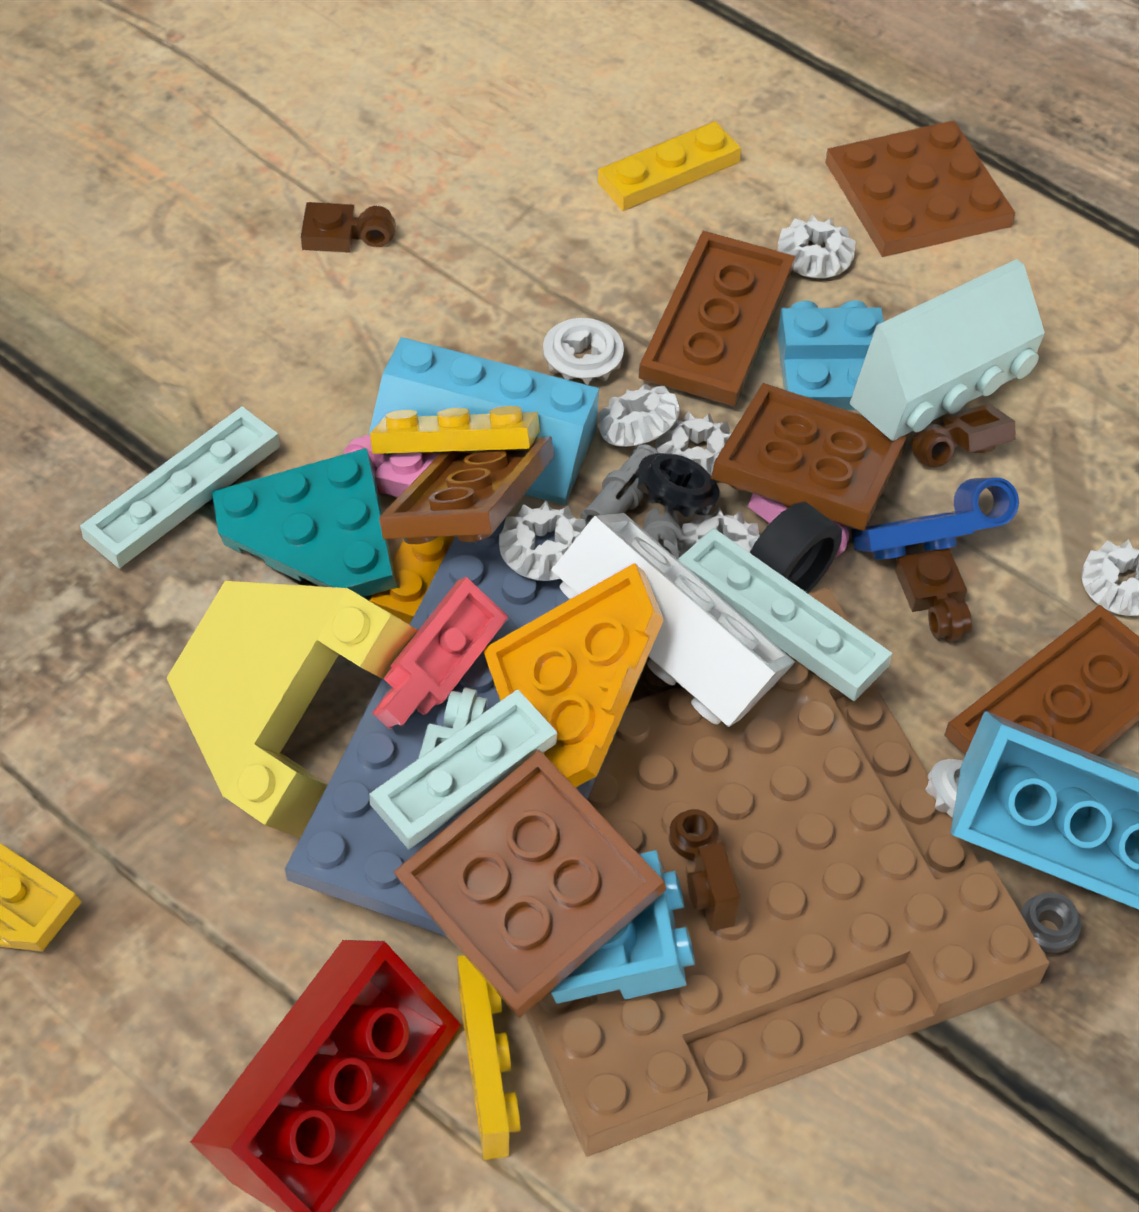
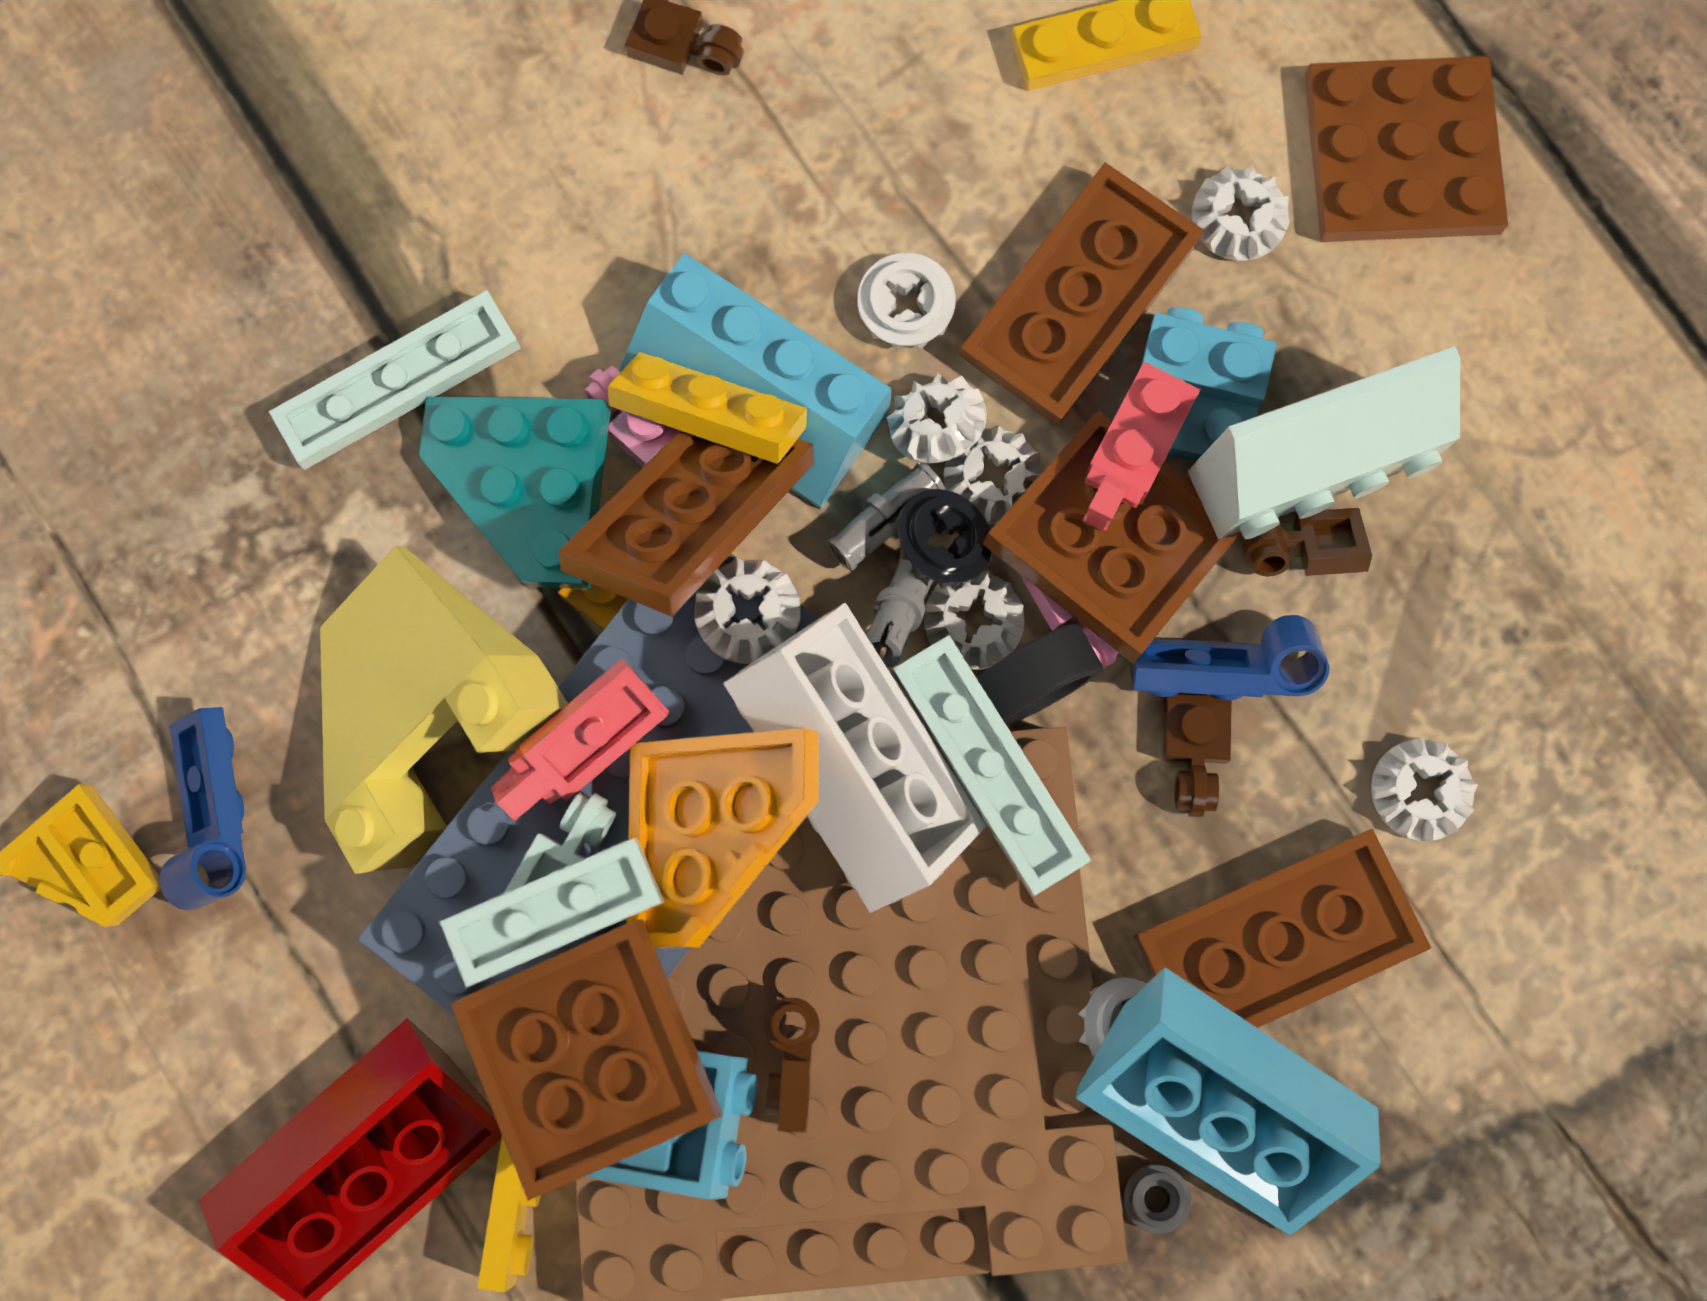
camera: 20 degrees right, 25 degrees up
(107, 829) = (210, 812): none -> blue plate
(804, 385) = (1137, 442): none -> coral hinge

